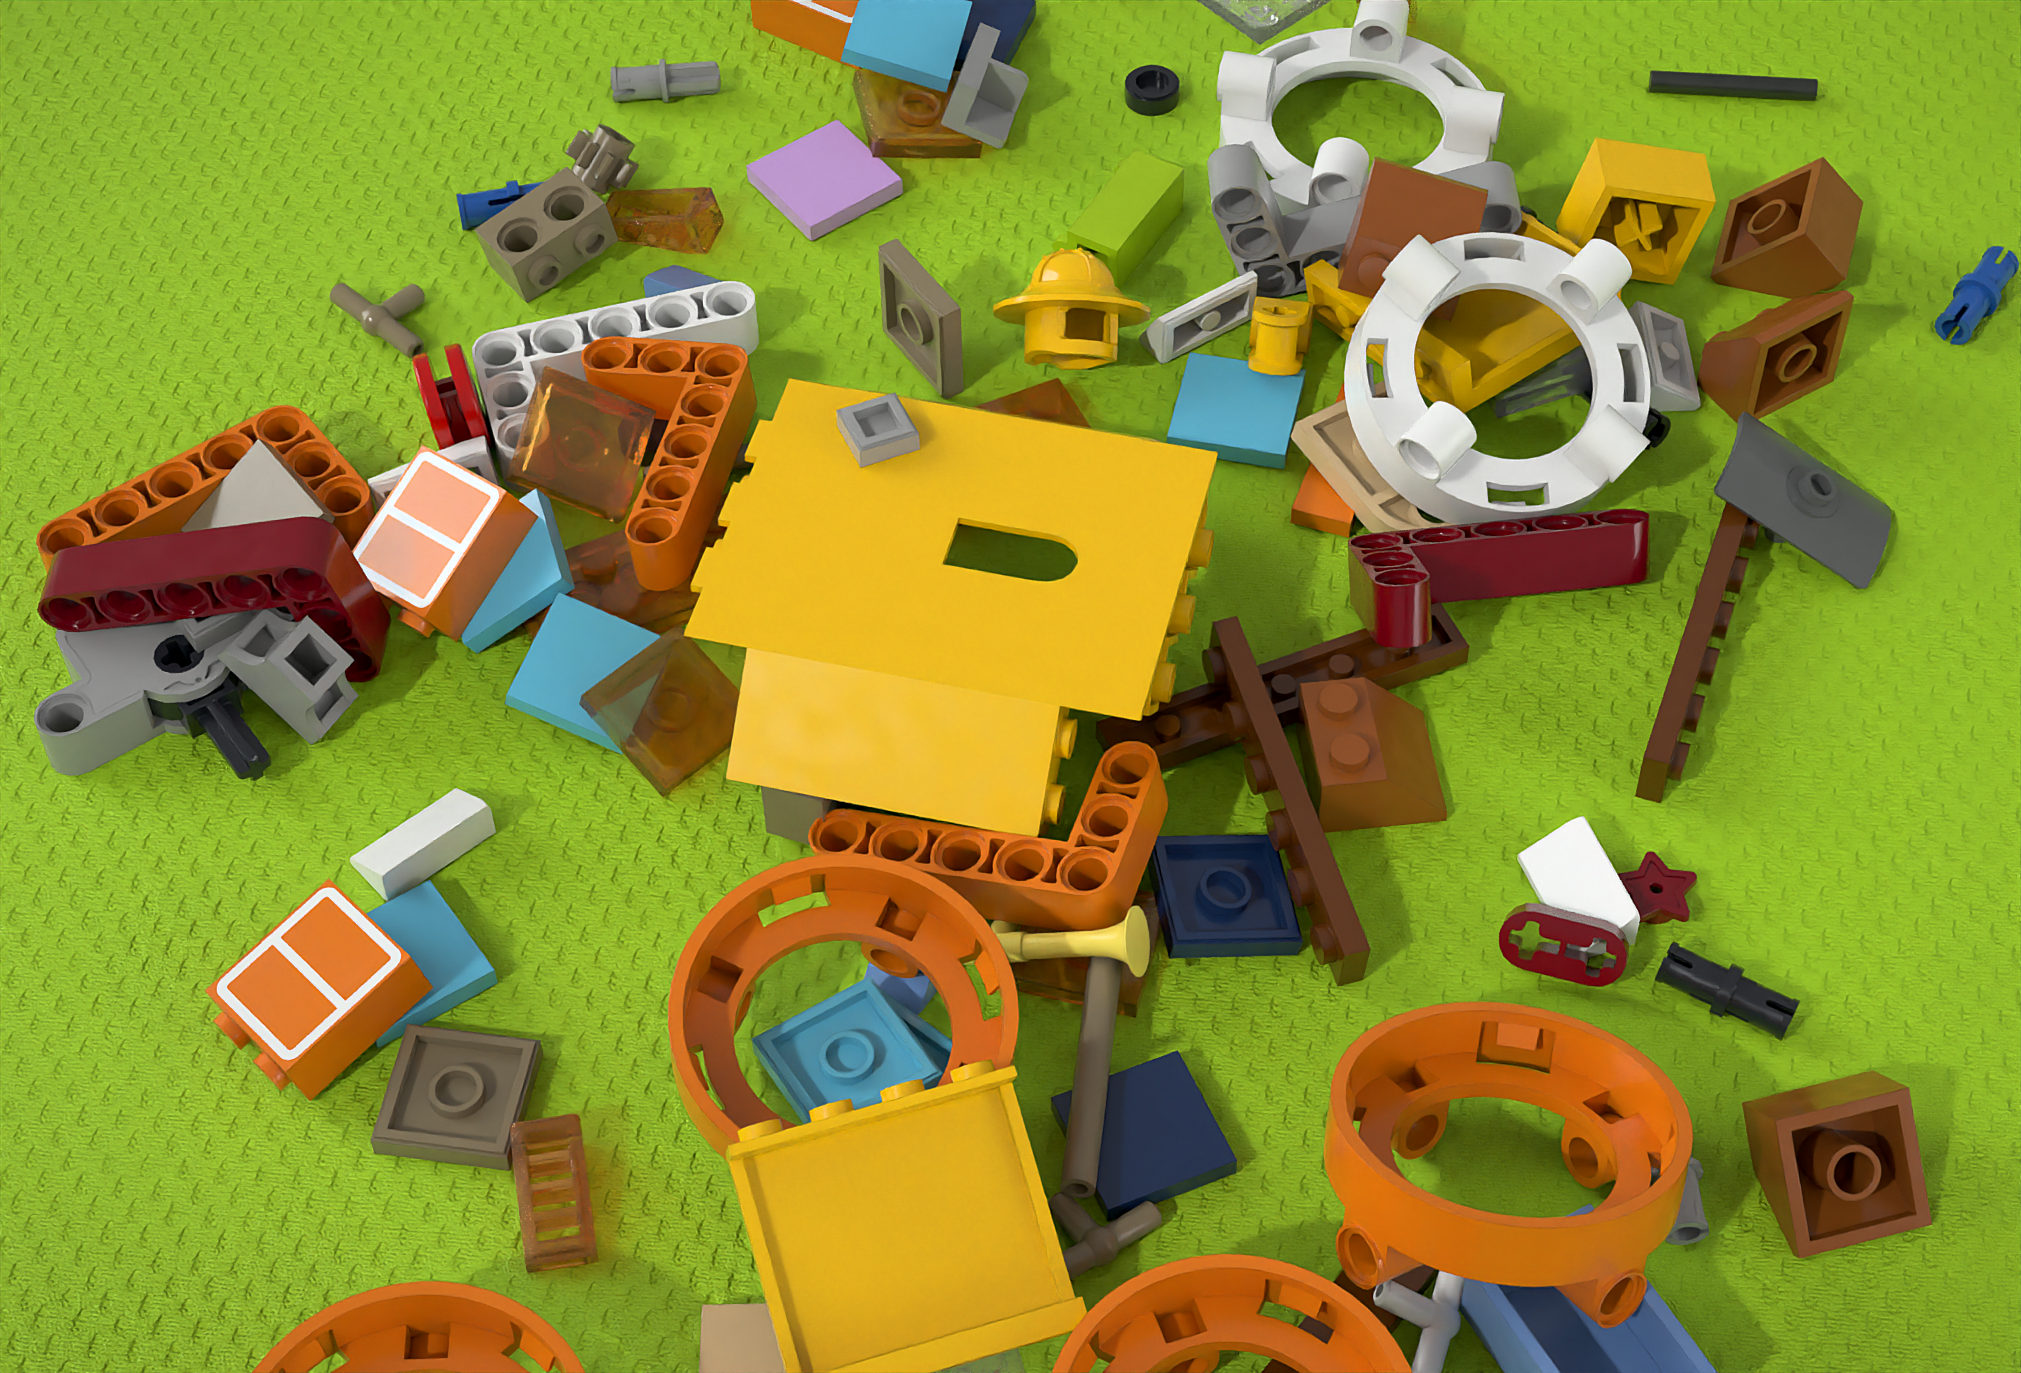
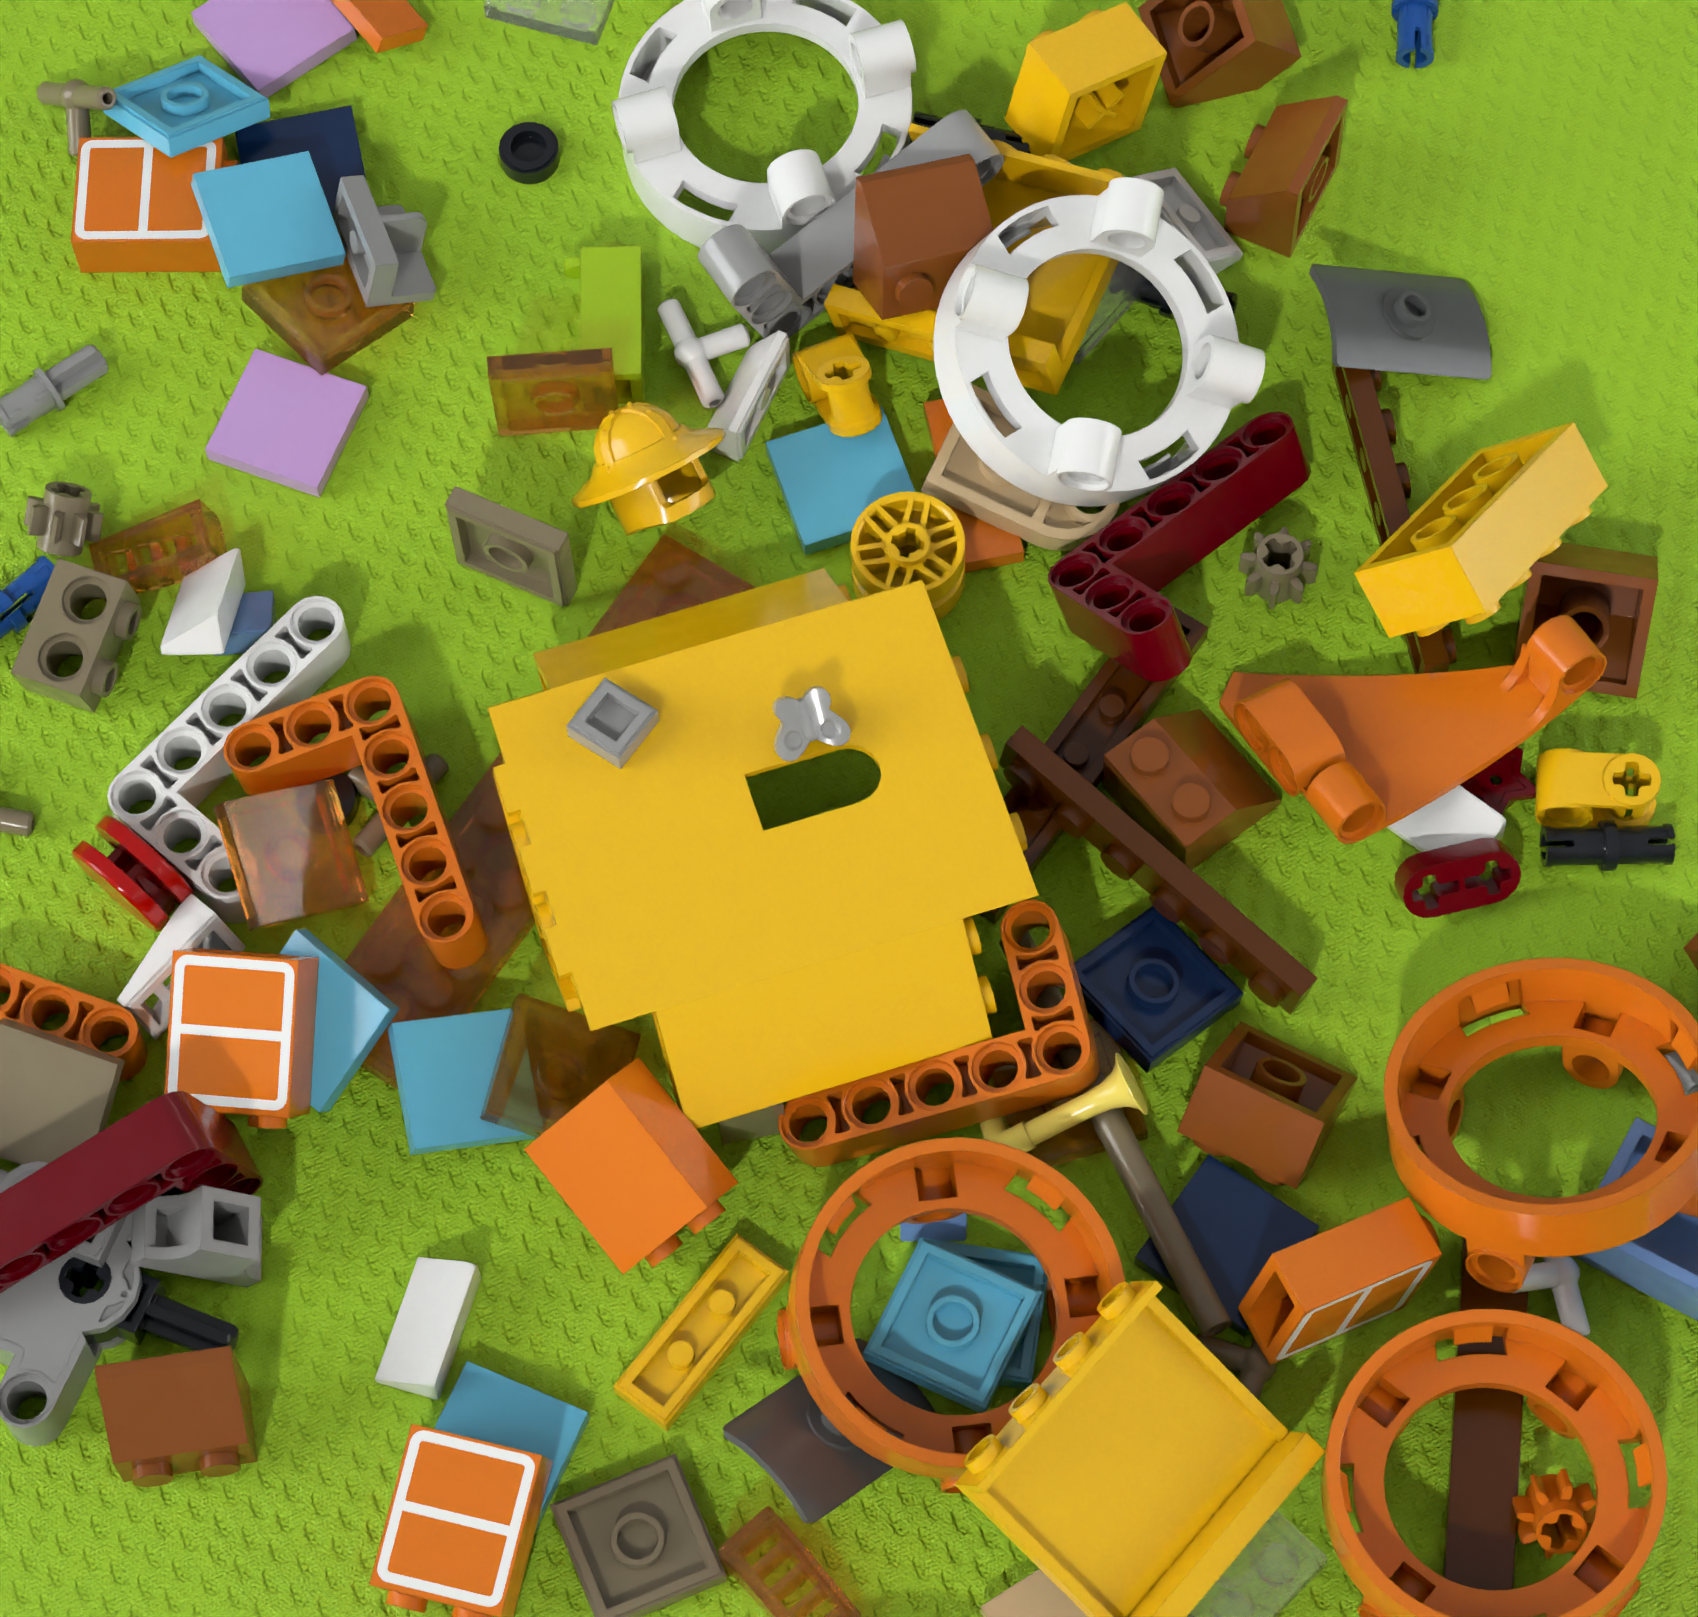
camera: 30 degrees left, 15 degrees up
(167, 786) = (177, 1415): none -> dark orange slope
(614, 969) = (701, 1332): none -> yellow tile
(635, 1087) = (806, 1451): none -> dark grey shield
(659, 259) = (206, 607): none -> white slope
(661, 785) = (633, 1168): none -> orange brick
(1031, 221) = (552, 390): none -> clear orange tile
(1034, 496) = (807, 721): none -> light grey piece
(1179, 270) = (694, 352): none -> white piece
(1212, 1192) = (1339, 1280): none -> orange brick
(1252, 479) = (906, 541): none -> yellow wheel
(1253, 1034) = (1266, 1105): none -> dark orange slope
(1561, 804) = (1394, 743): none -> orange panel
(1565, 633) = (1281, 553): none -> dark tan gear
(1745, 931) = (1589, 787): none -> yellow piece
(1760, 663) = (1482, 532): none -> yellow brick
(1825, 800) = (1608, 598): none -> dark orange slope

